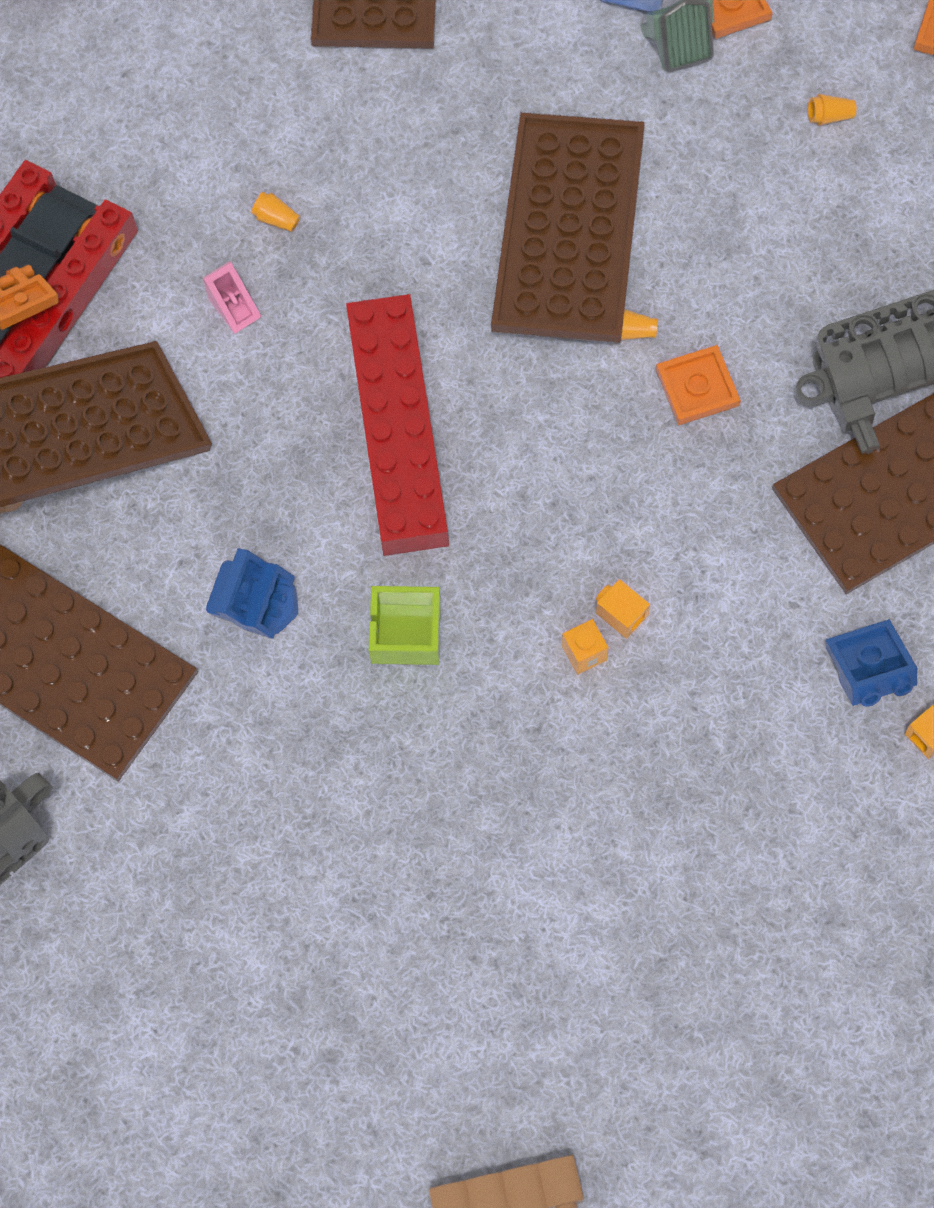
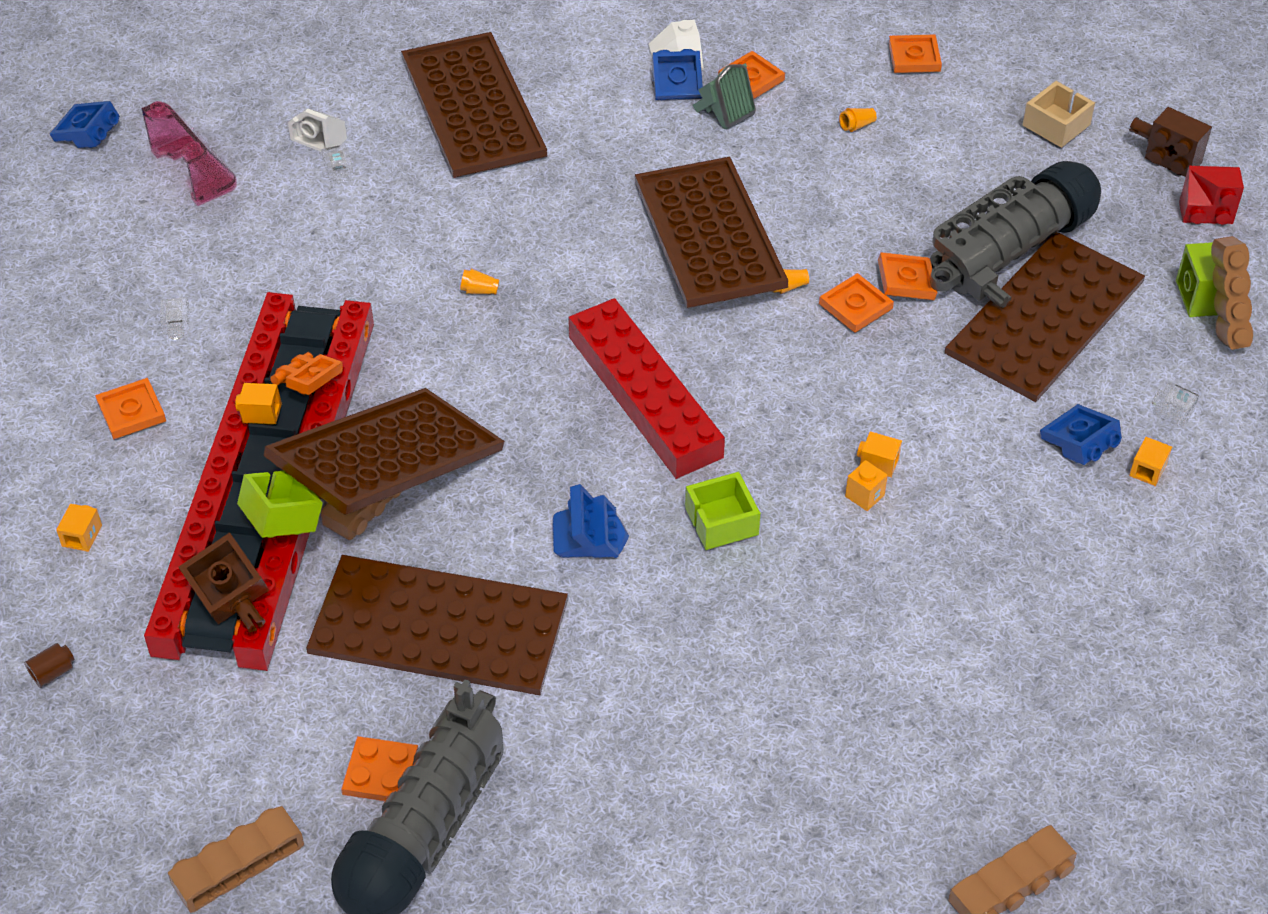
camera: 25 degrees left, 20 degrees down
(230, 297) = (471, 343): bright pink slope -> none
(774, 367) = (906, 276): none -> orange plate

